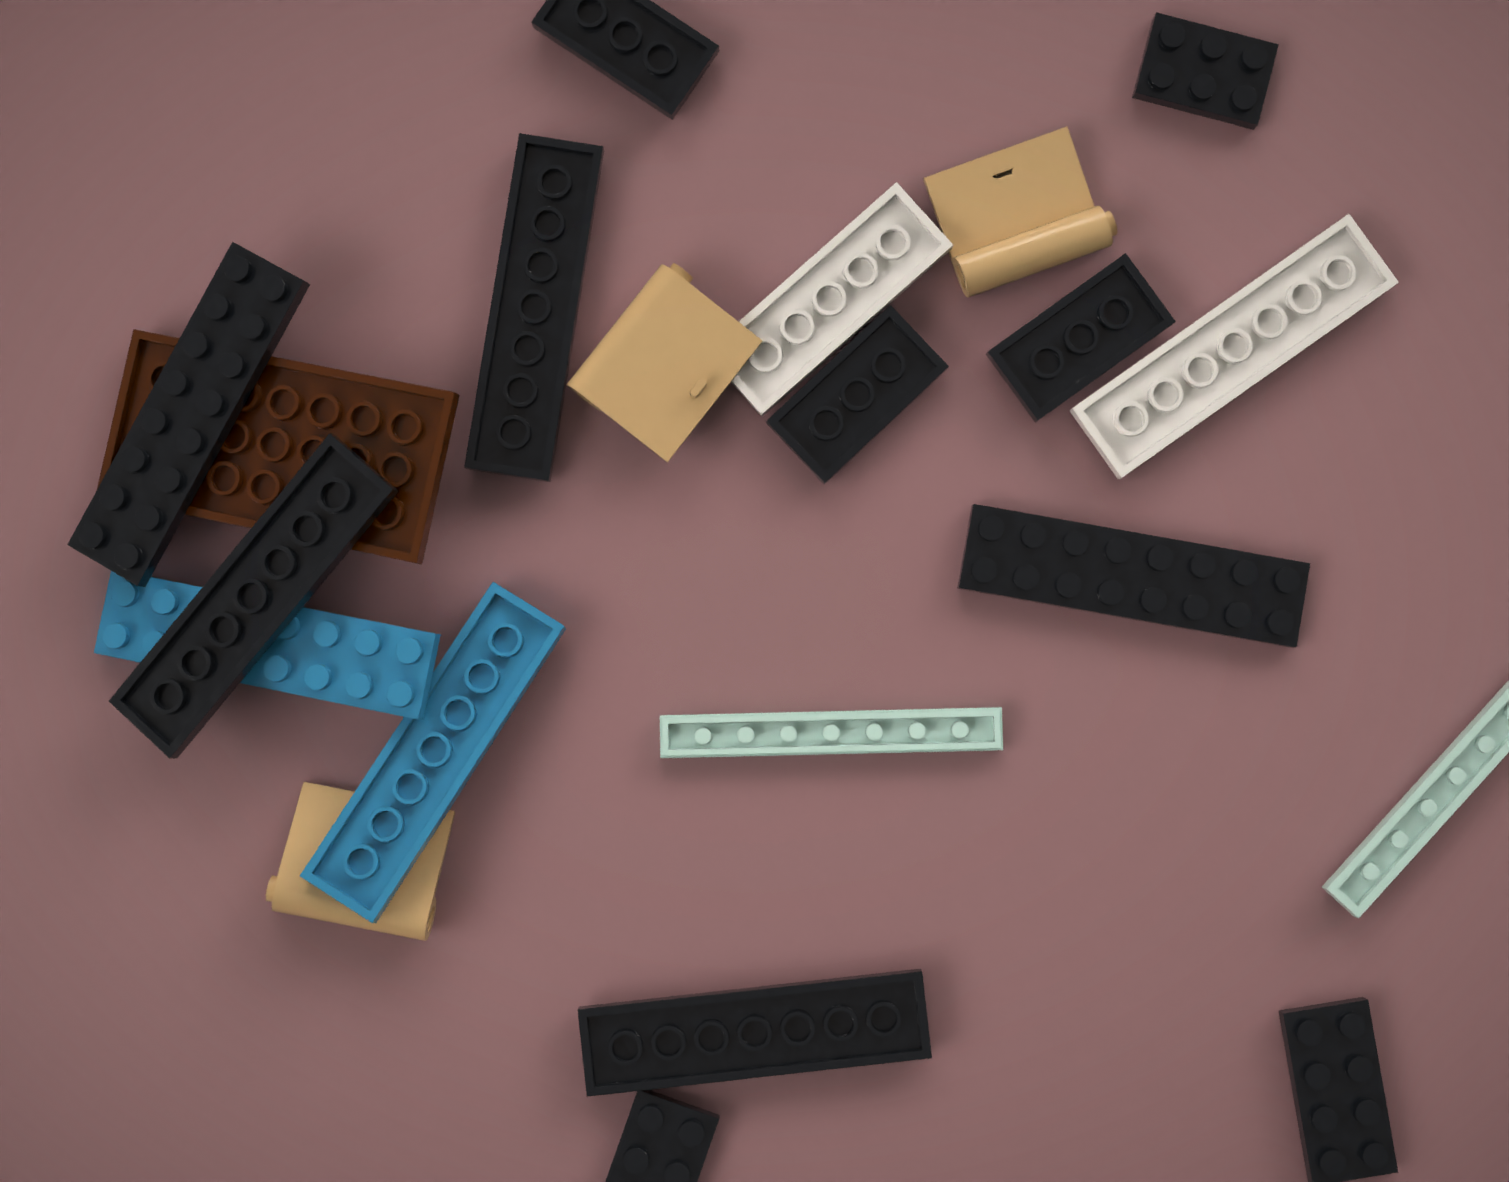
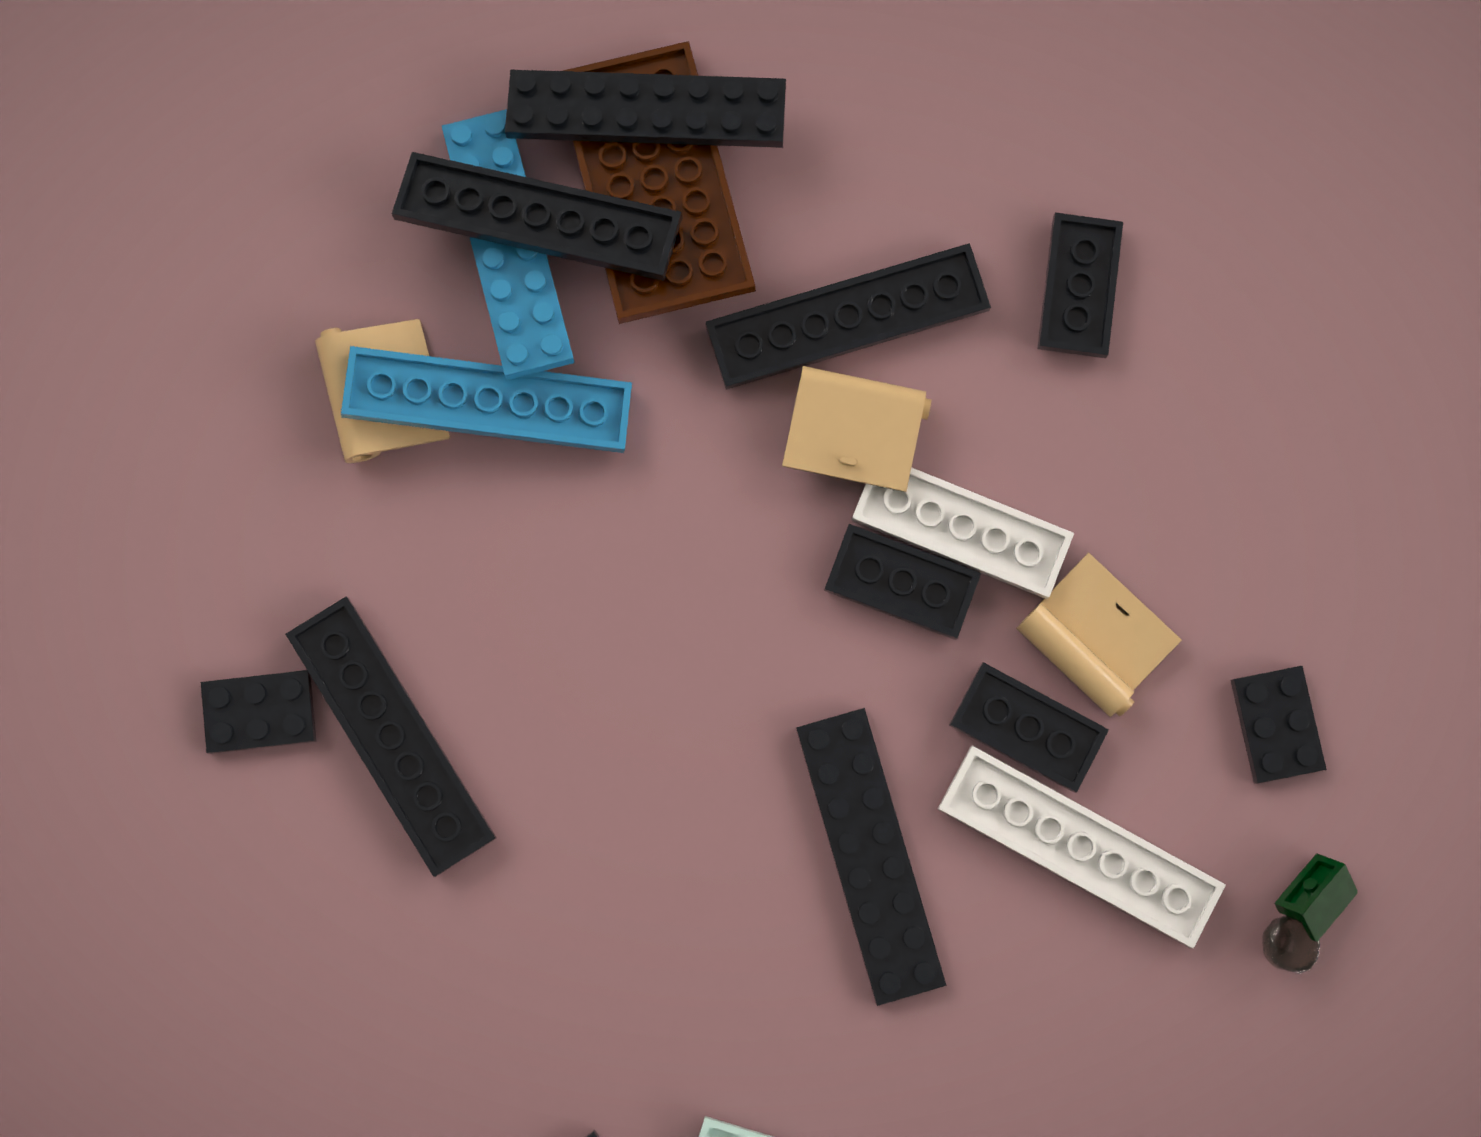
camera: 55 degrees right, 5 degrees down
(831, 732) = (642, 686): light aqua tile -> none
(1406, 122) = (1318, 895): none -> dark green panel
(1445, 178) = (1289, 946): none -> clear smoke hair

